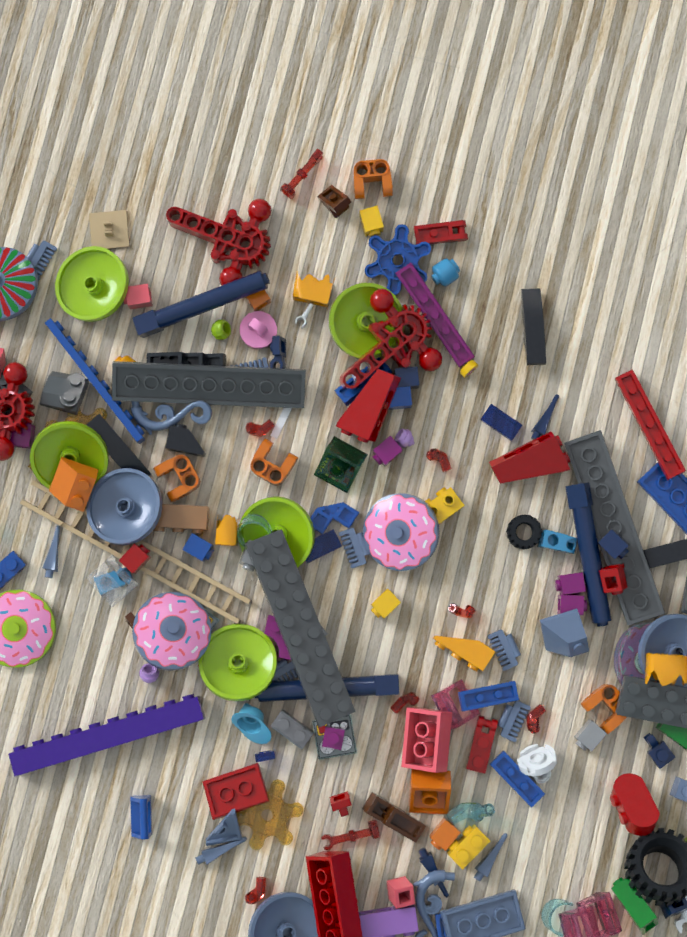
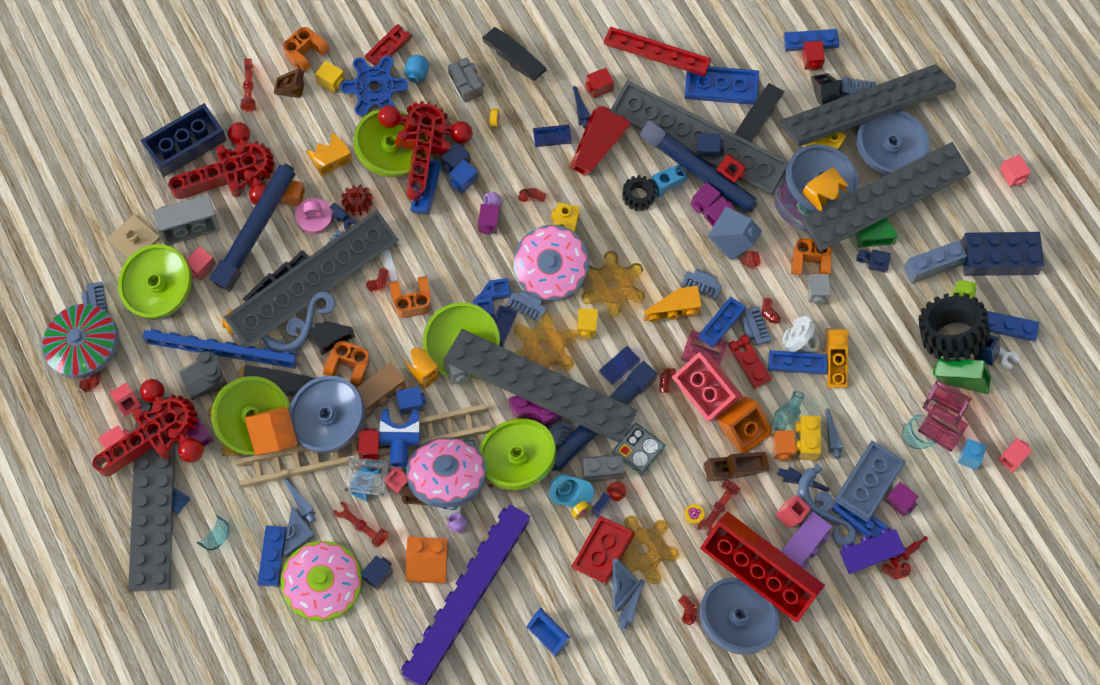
camera: 45 degrees left, 15 degrees down
(31, 576) = (297, 533): none -> sand blue tile
(60, 659) = (377, 572): none -> dark blue brick
(79, 612) = (361, 525): none -> clear red piece
(103, 681) = (426, 560): none -> orange slope
(134, 600) = (396, 480): none -> coral plate
(156, 252) = (186, 220): none -> light grey brick
(162, 572) = (399, 437): none -> blue connector
(211, 180) = (183, 140): none -> dark blue brick
(221, 329) = (285, 236): lime piece -> none
(245, 745) = (580, 510): none -> yellow tile
(249, 519) = (432, 341): clear light blue helmet -> none
(287, 754) = (616, 491): none -> clear red plate
(303, 339) = (356, 199): none -> clear red gear
(304, 315) = (340, 180): white hand -> none
(328, 824) = (694, 514): none -> yellow tile
(333, 737) = (638, 444): magenta brick -> none
(340, 464) = (463, 256): clear green slope -> none
(341, 802) = (689, 489): red tile -> none
(347, 582) = (545, 332): none -> clear yellow plate
(370, 407) = (448, 197): red slope -> none
(380, 658) = (619, 365): none -> clear blue tile
(439, 320) = (451, 104): magenta tile -> none
(440, 602) = (613, 272): none -> clear yellow plate
(458, 611) = (646, 284): clear red arm -> none
(475, 315) = (465, 79): none -> flat silver brick
(555, 798) = (837, 357): none -> light orange slope
(560, 664) = (751, 259): none -> clear red plate
(578, 411) = (599, 83): none -> red brick
(634, 804) = (894, 303): red brick -> none

